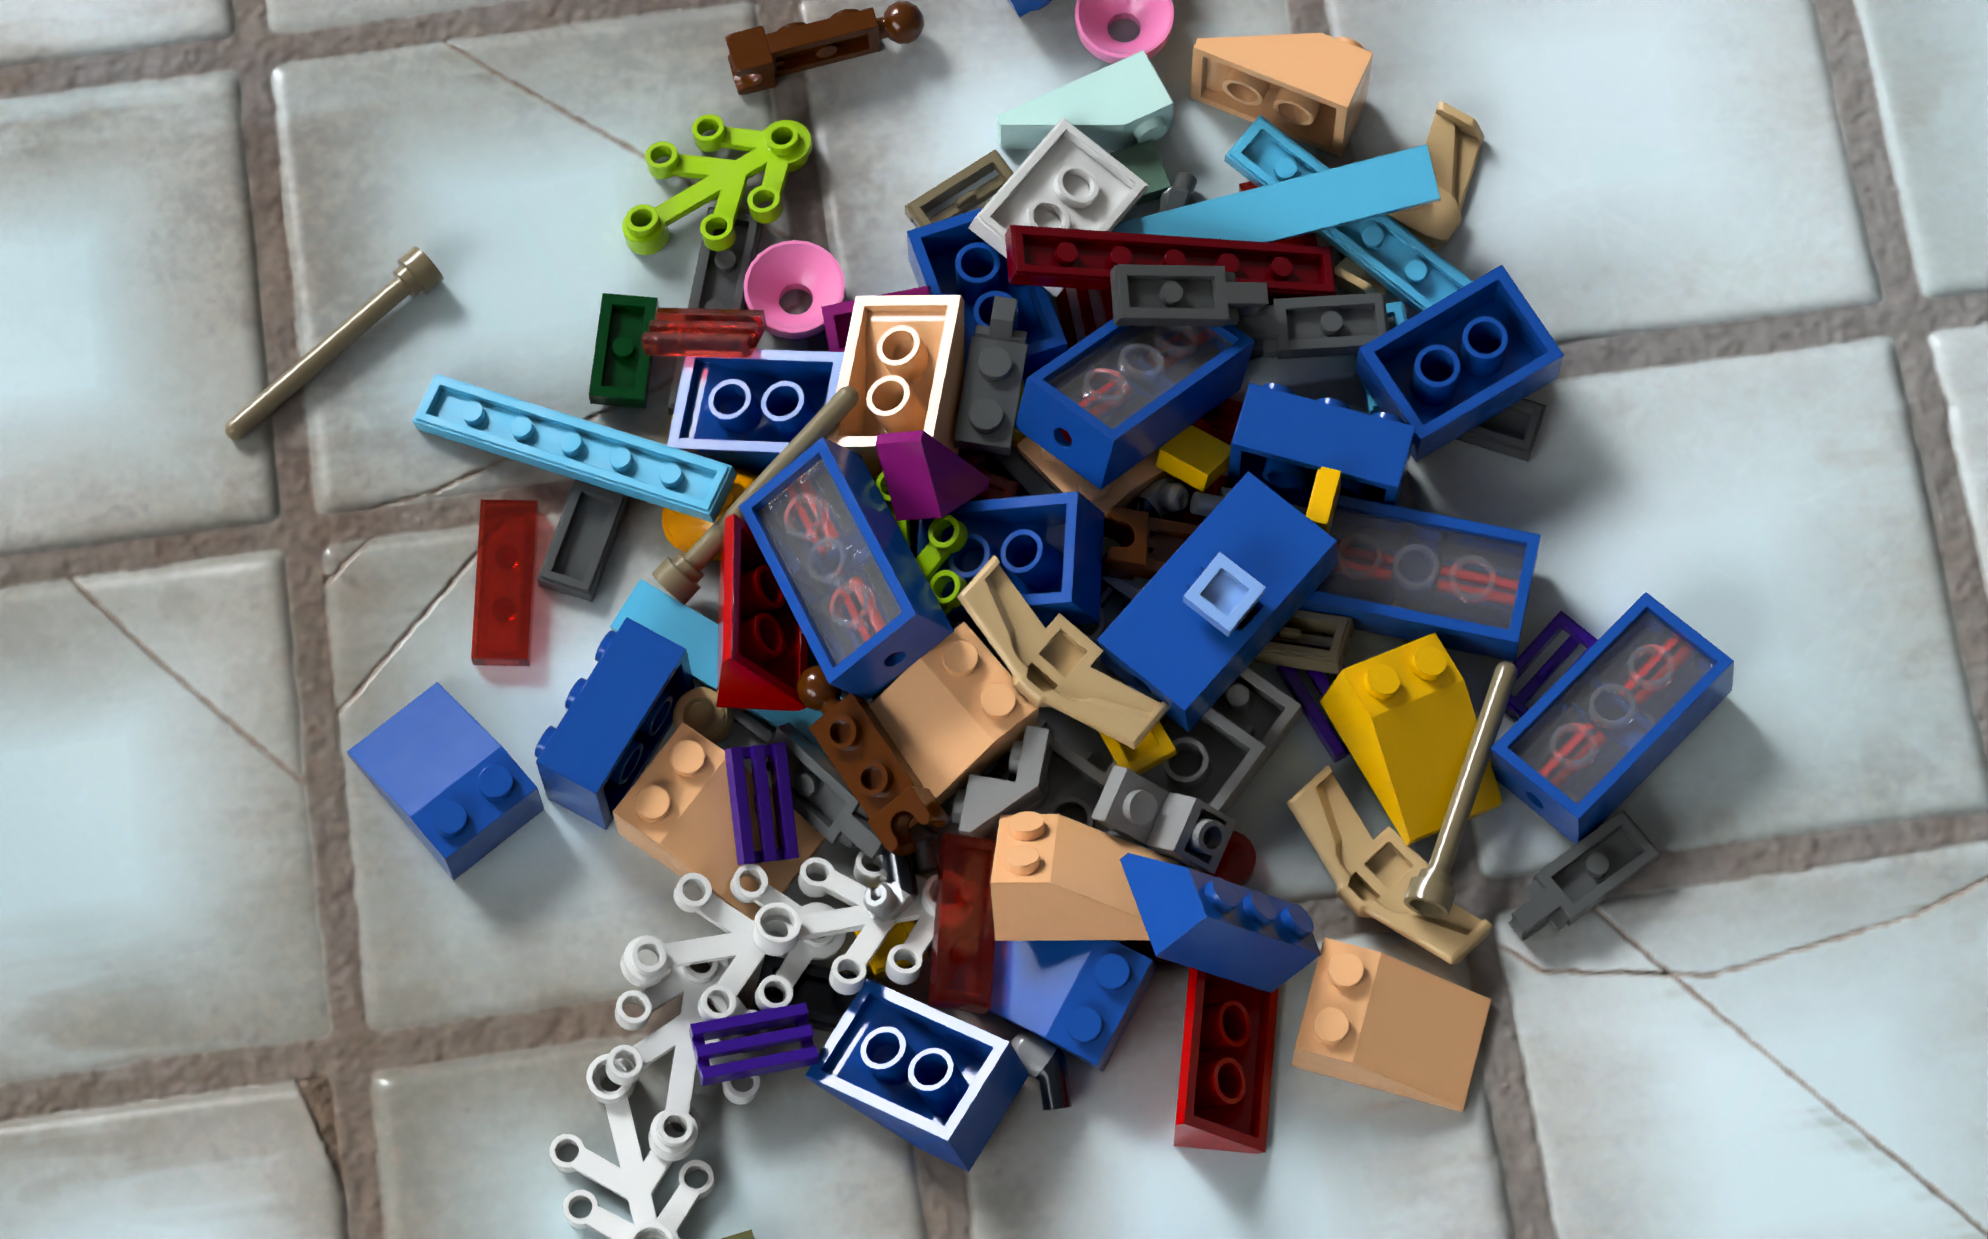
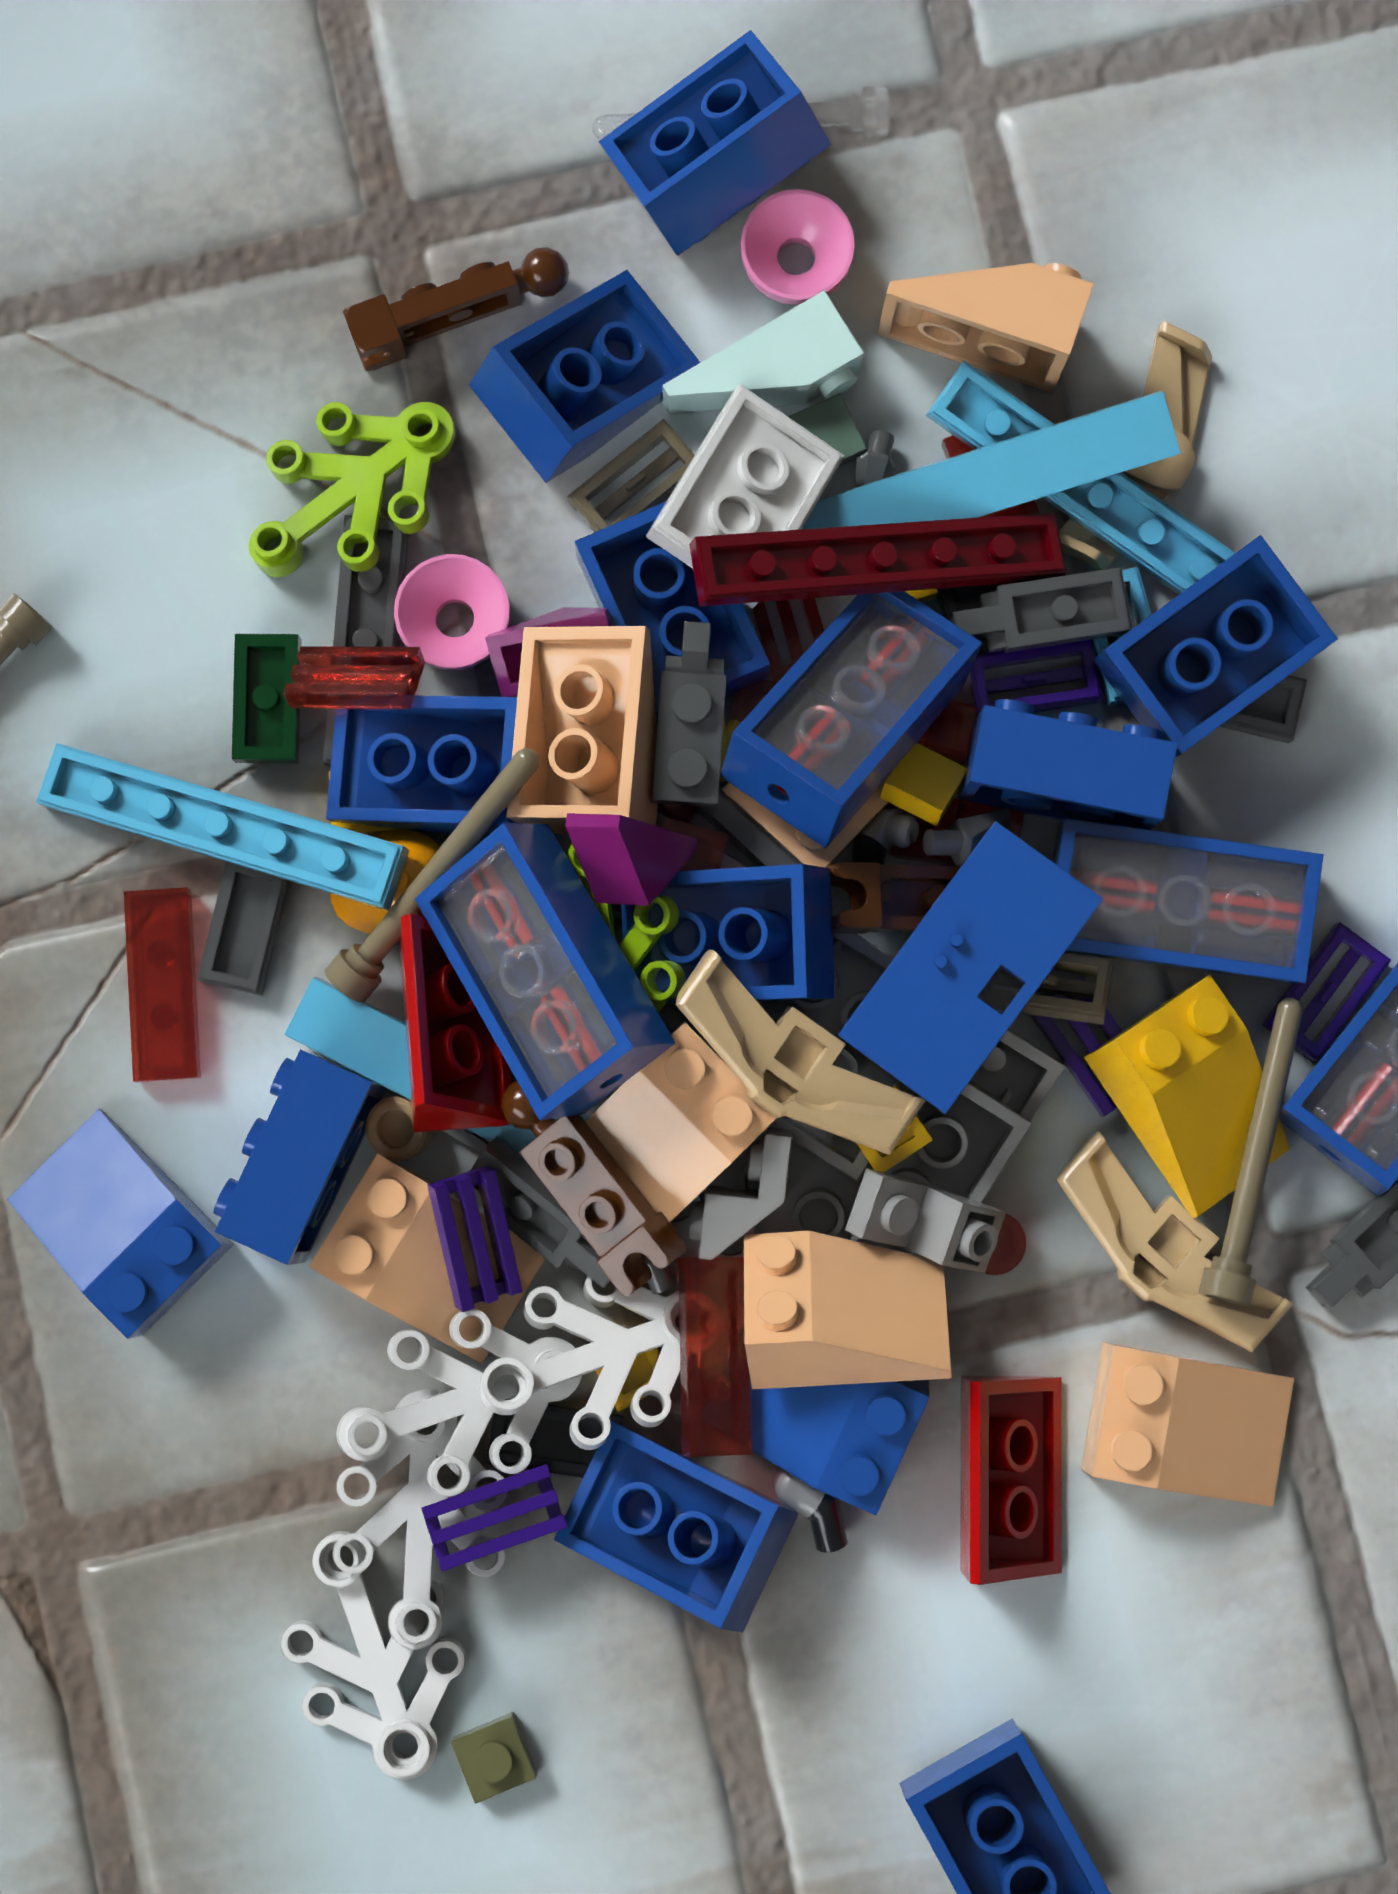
camera: 10 degrees left, 15 degrees up
(896, 892) = (632, 1327): arm -> none
(924, 107) = (581, 374): none -> blue slope
(1182, 296) = (897, 602): dark grey hinge -> none
(1220, 924) = (997, 1344): blue slope -> none
(1224, 594) = (982, 981): light blue plate -> none
(1313, 368) = (1089, 672): none -> dark purple tile
(1324, 497) = (1079, 842): yellow tile -> none

